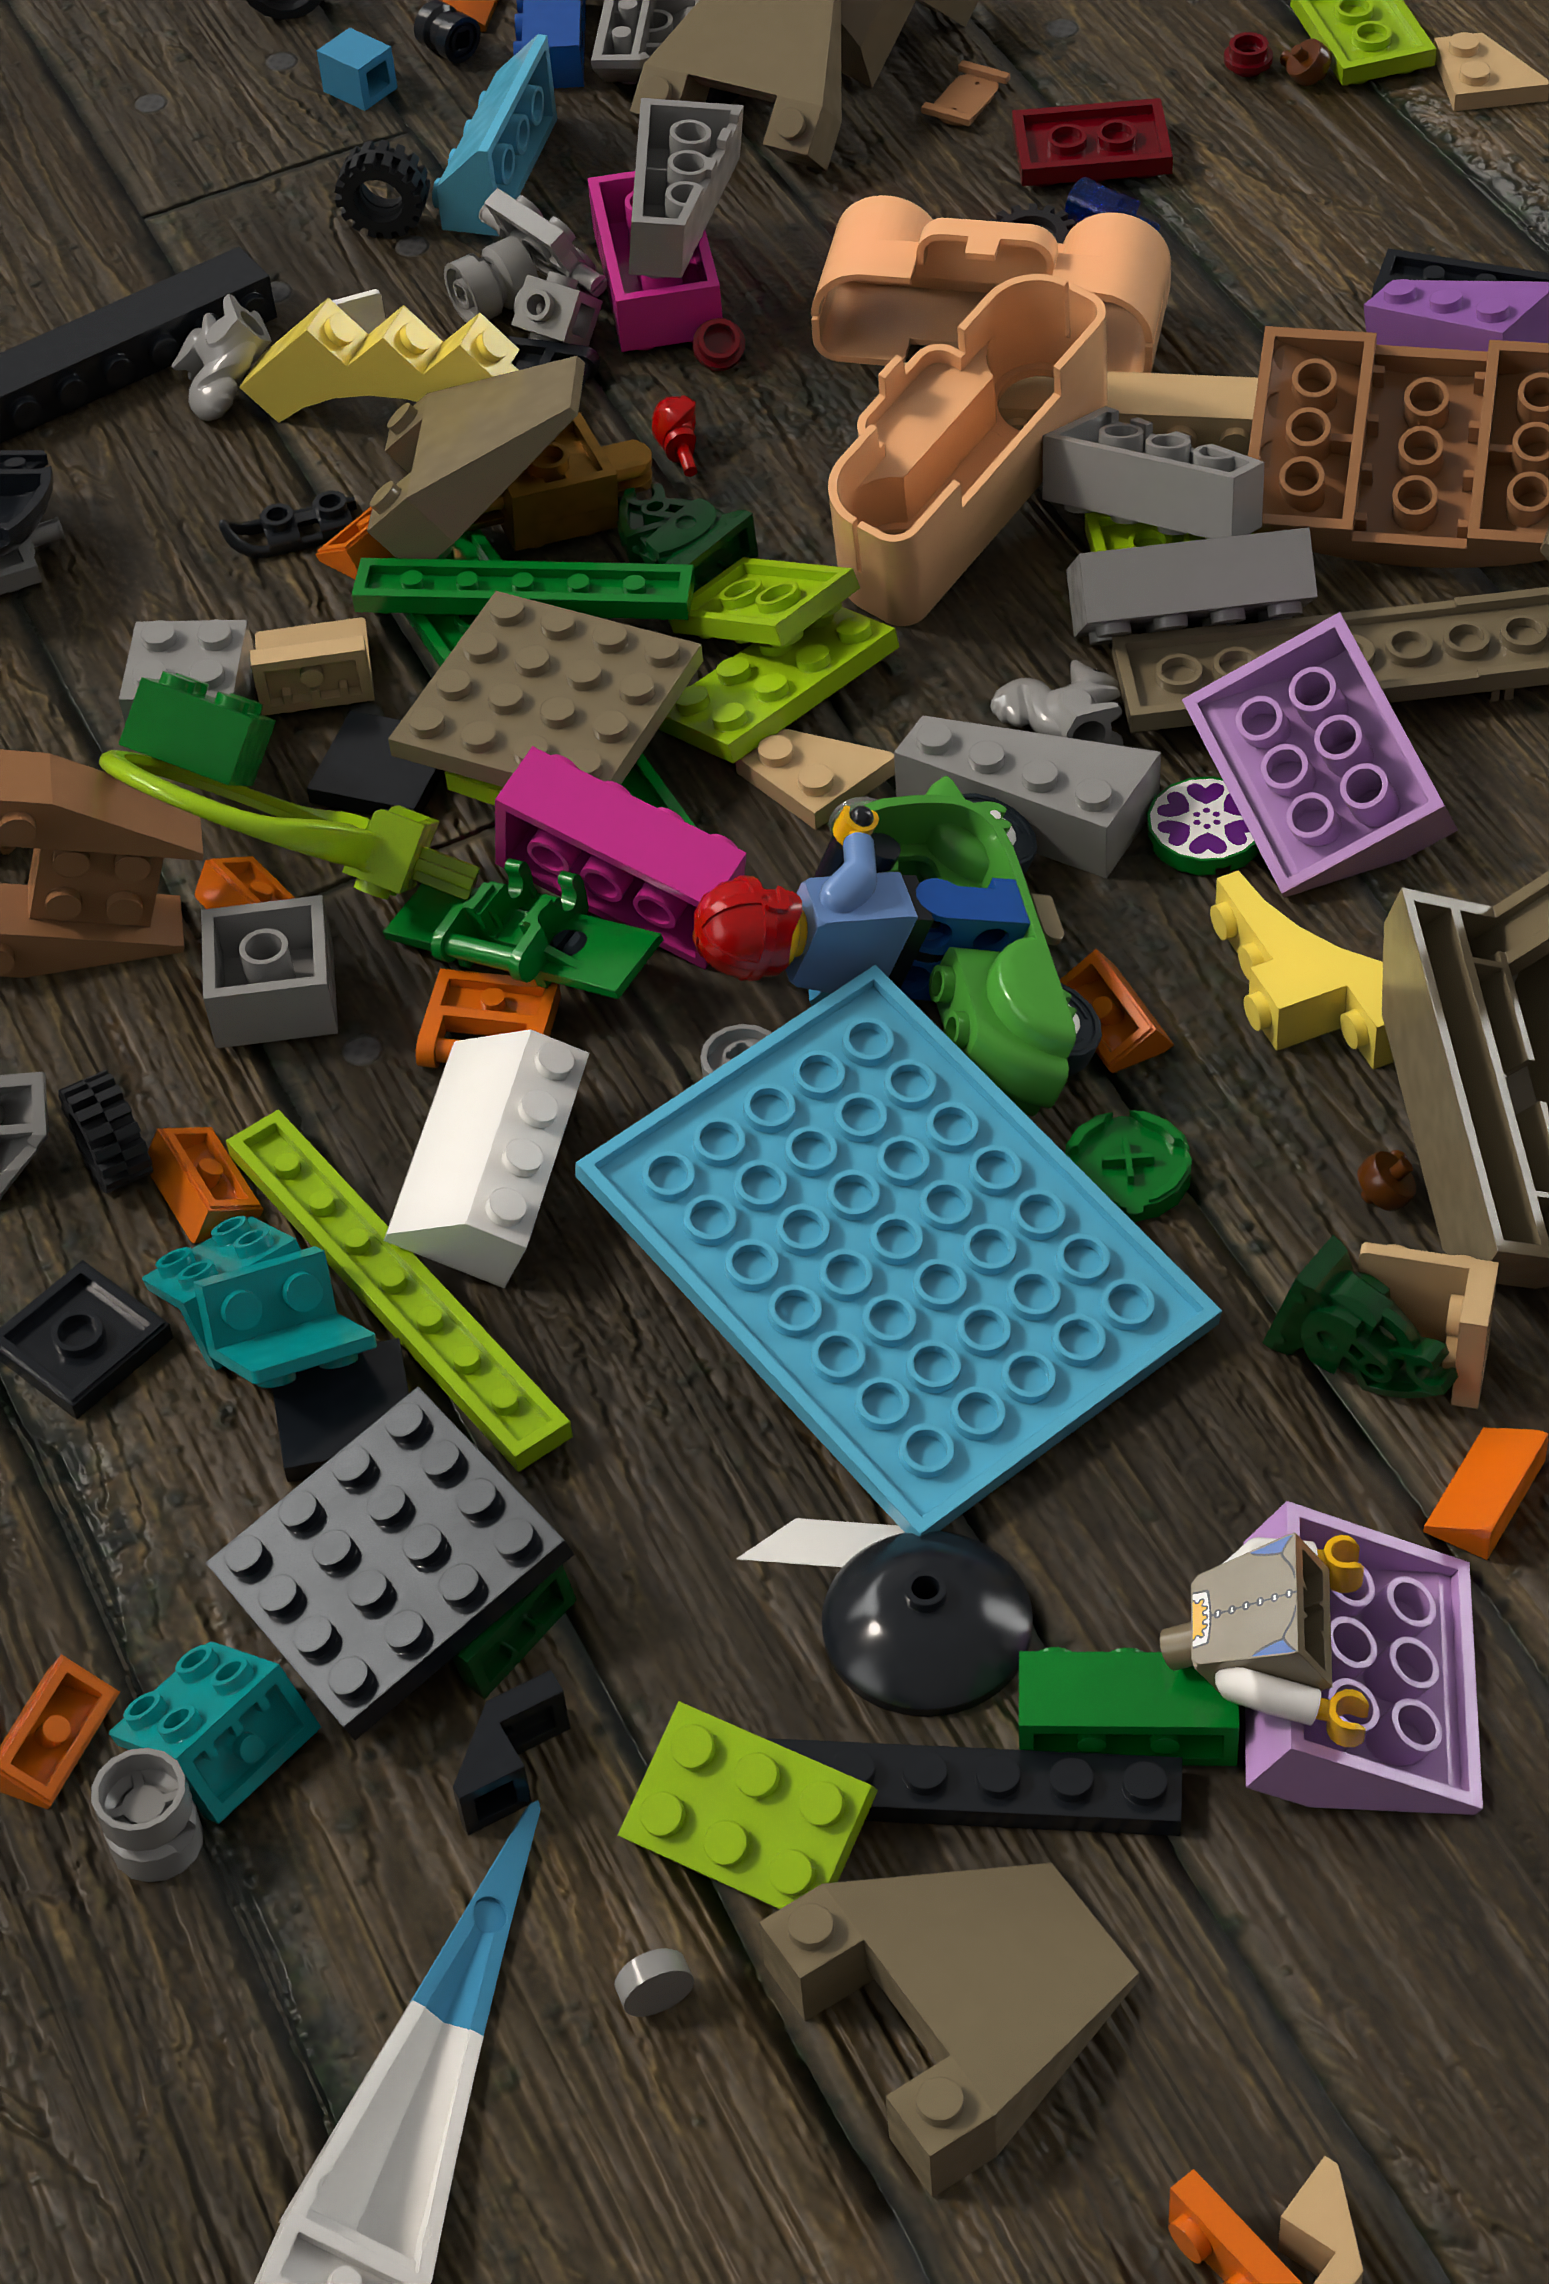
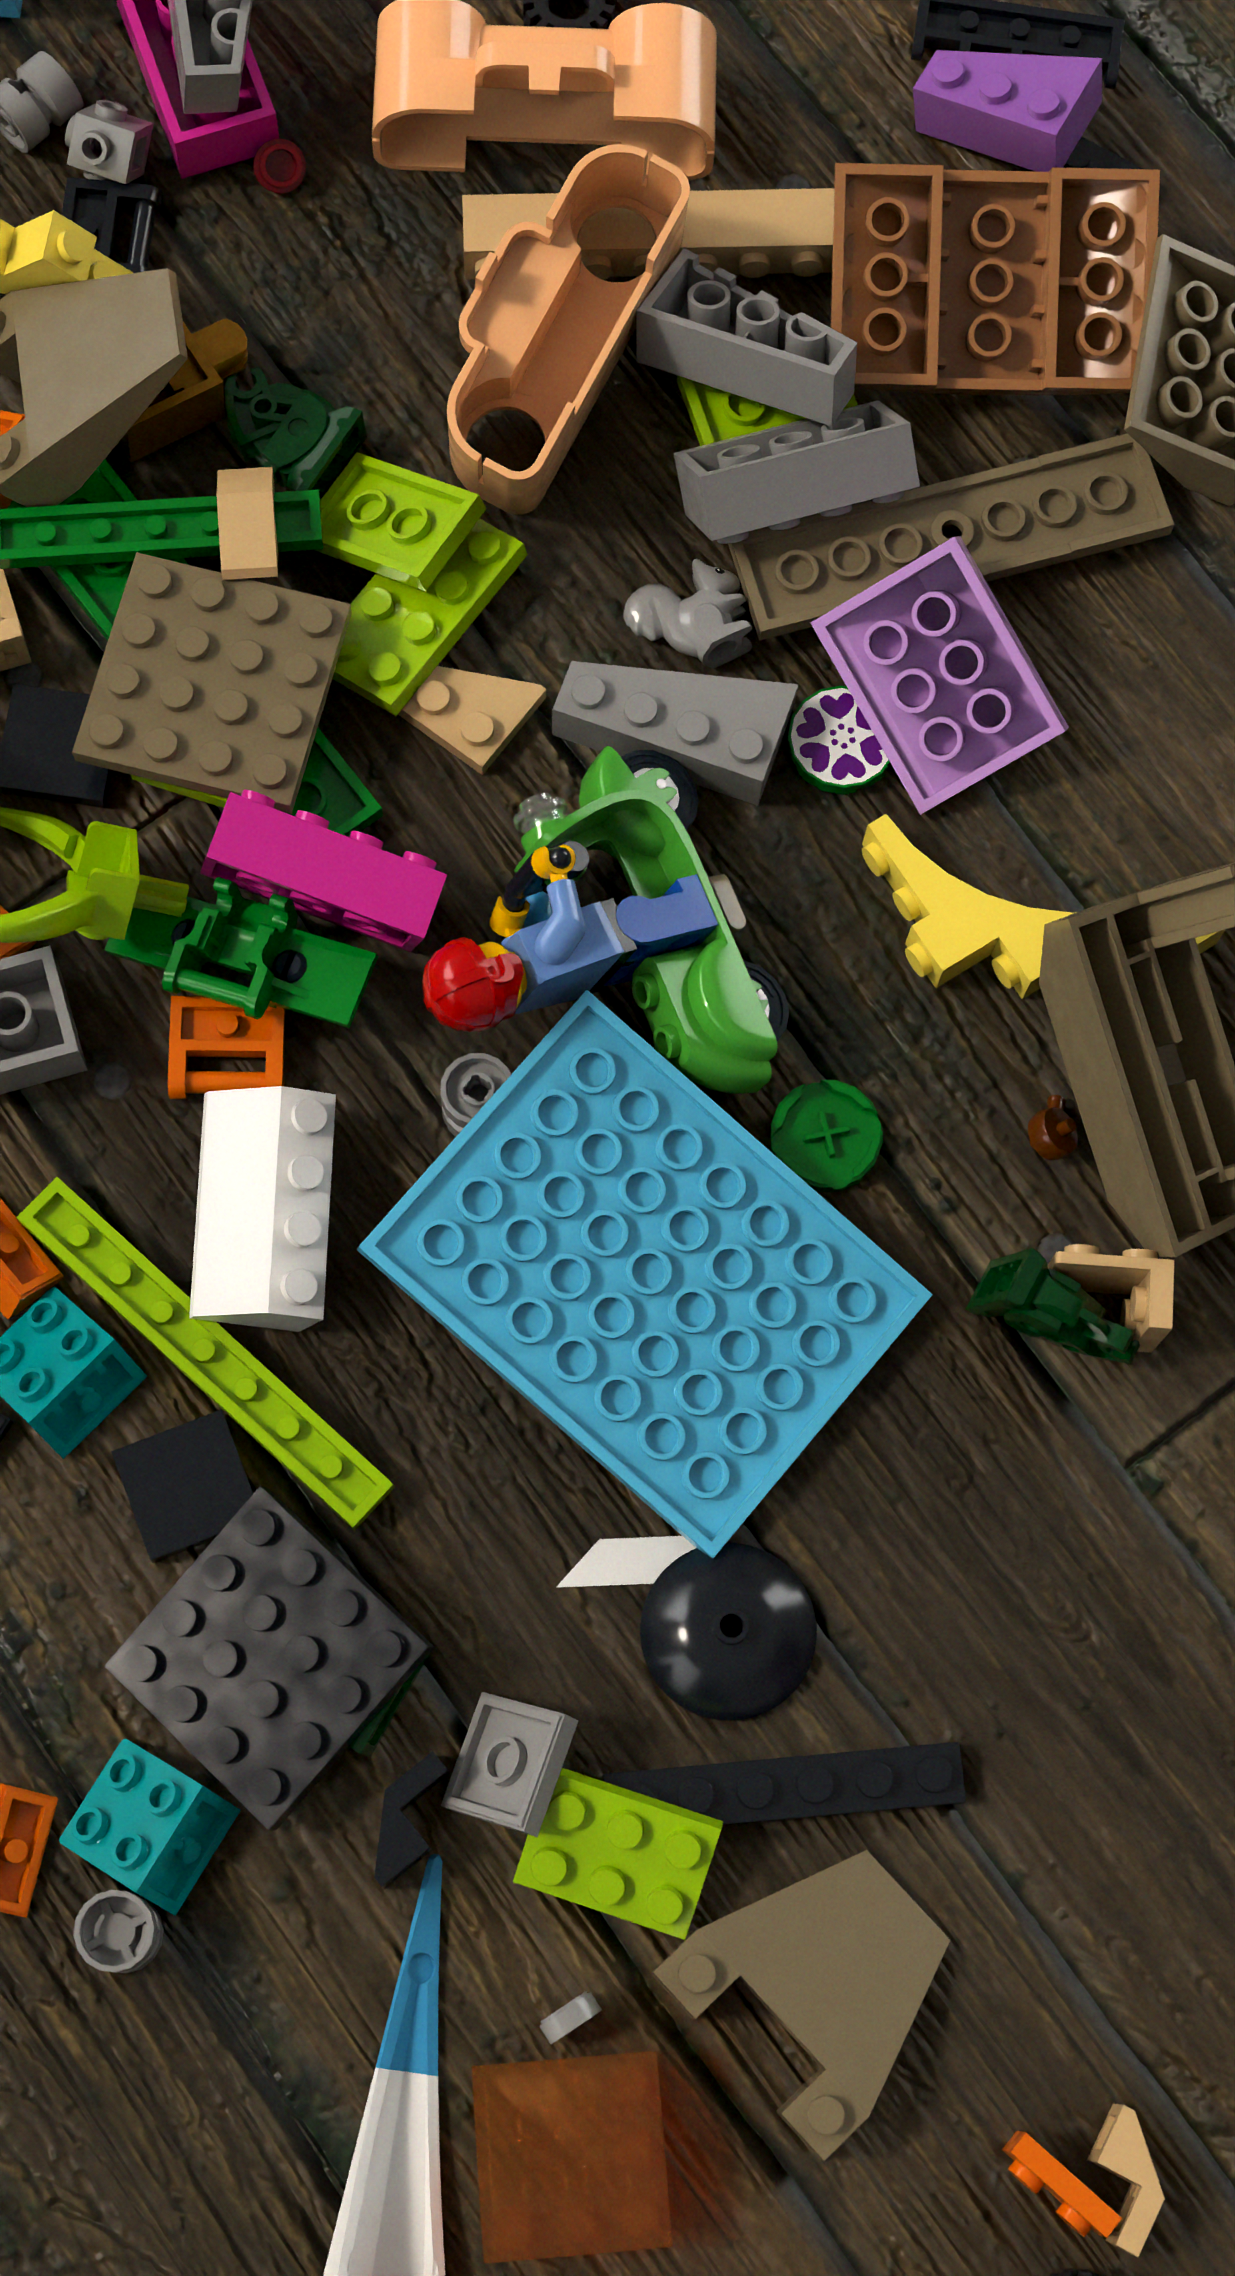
camera: 20 degrees left, 25 degrees up
(278, 1319) = (120, 1426): teal bracket -> none
(545, 240) = (82, 55): light grey plate -> none
(611, 577) = (247, 523): none -> tan slope
(623, 2135) = (571, 2157): none -> clear orange slope
(637, 1699) = (509, 1763): none -> light grey tile
(674, 430) = (256, 286): red piece -> none
(1123, 1706) = (909, 1700): green brick -> none
(1127, 1025) = (786, 955): orange slope -> none
(1266, 1630) = (1027, 1654): torso -> none
(1413, 1658) = (1089, 1638): lavender slope -> none
(1488, 1488) = (1170, 1439): orange slope -> none

